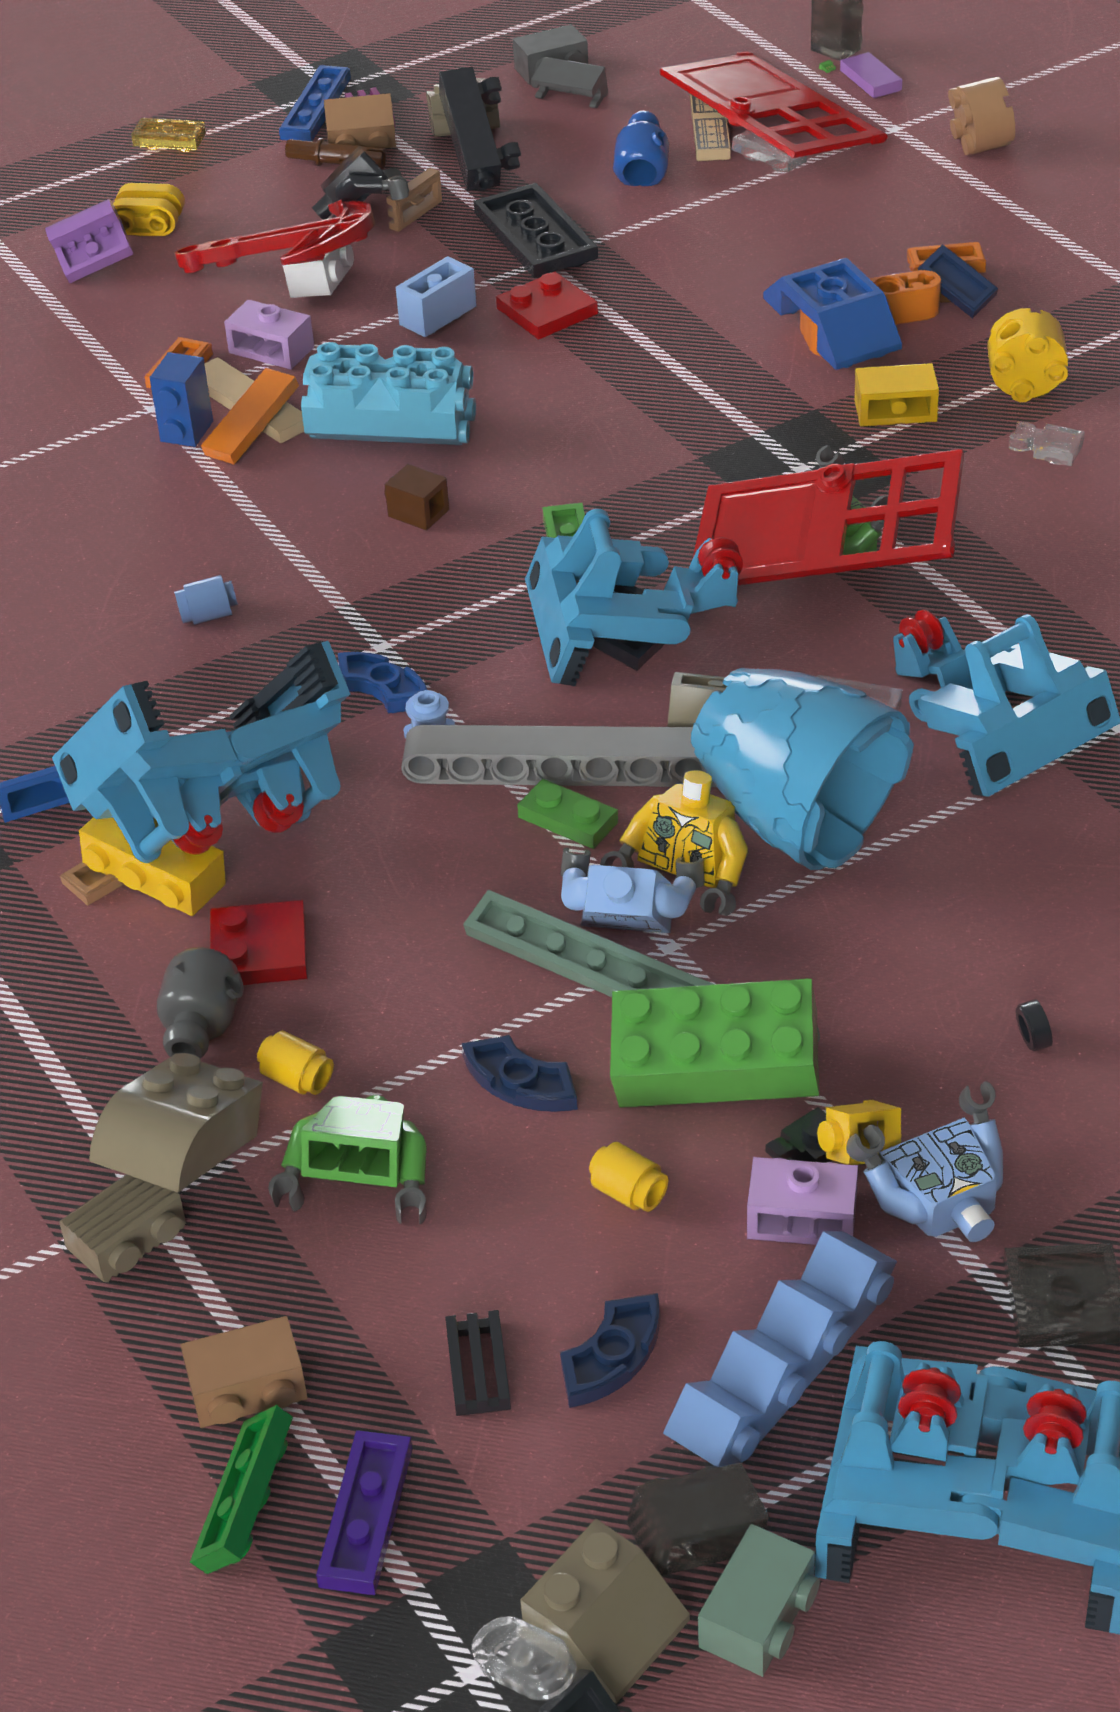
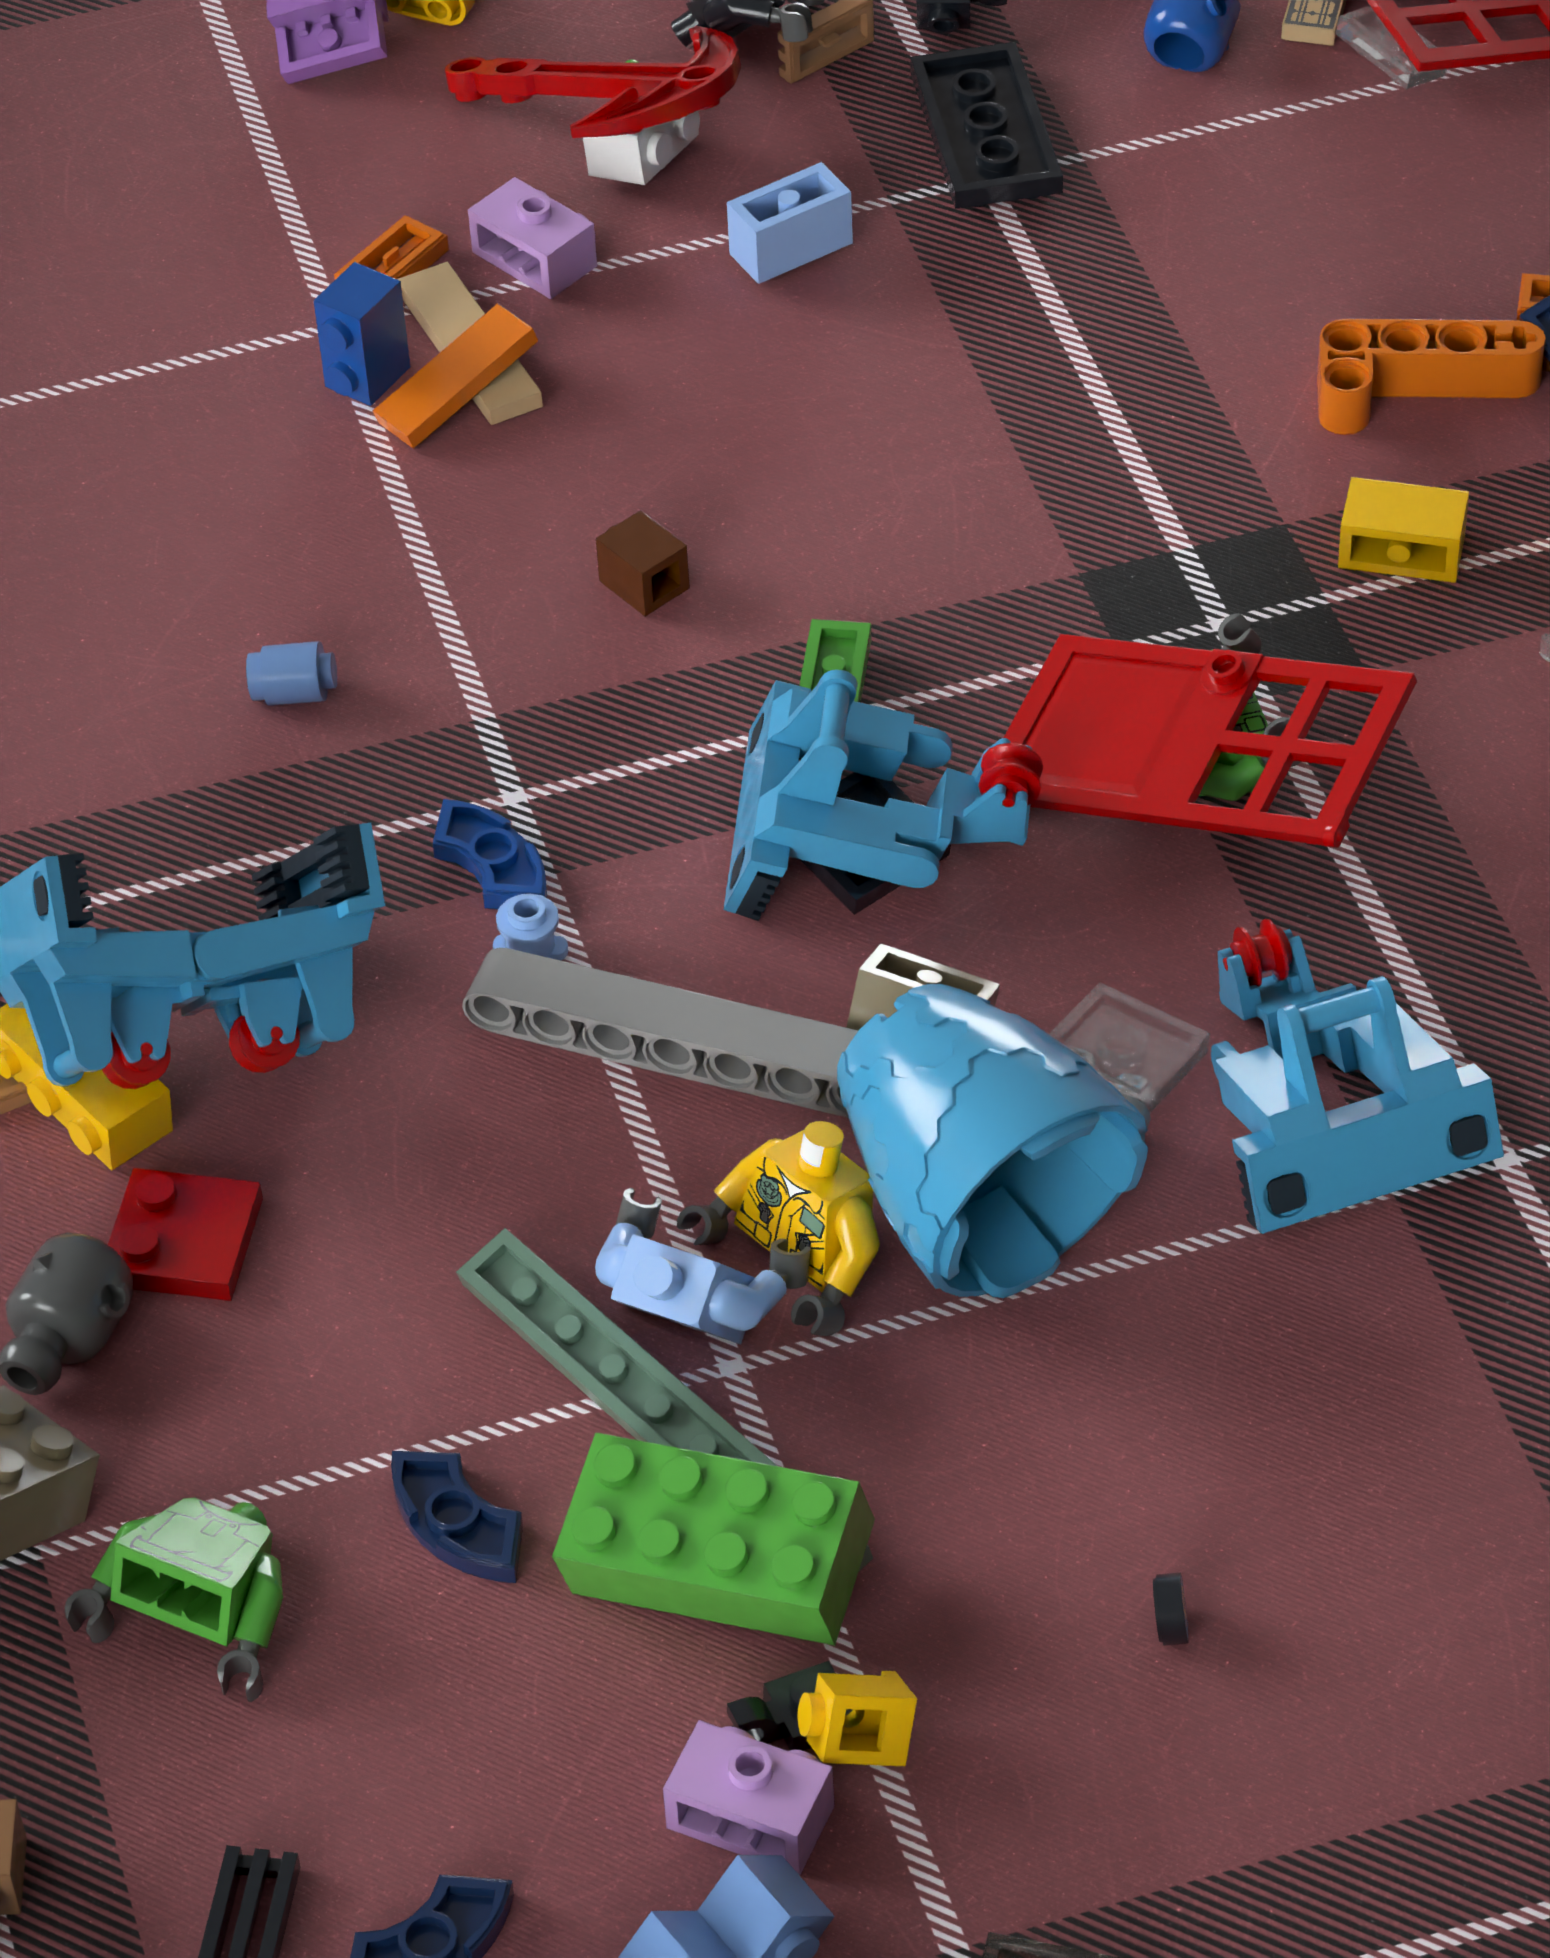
camera: 15 degrees right, 5 degrees up
(294, 1063) = (163, 1429): yellow brick -> none
(403, 399) = (671, 396): medium azure brick -> none
(546, 305) = (956, 262): red plate -> none
(568, 813) = (668, 1126): bright green plate -> none
(628, 1177) = (534, 1704): yellow brick -> none
(845, 306) = (1371, 372): blue slope -> none
(942, 1175) = (947, 1804): light blue torso -> none

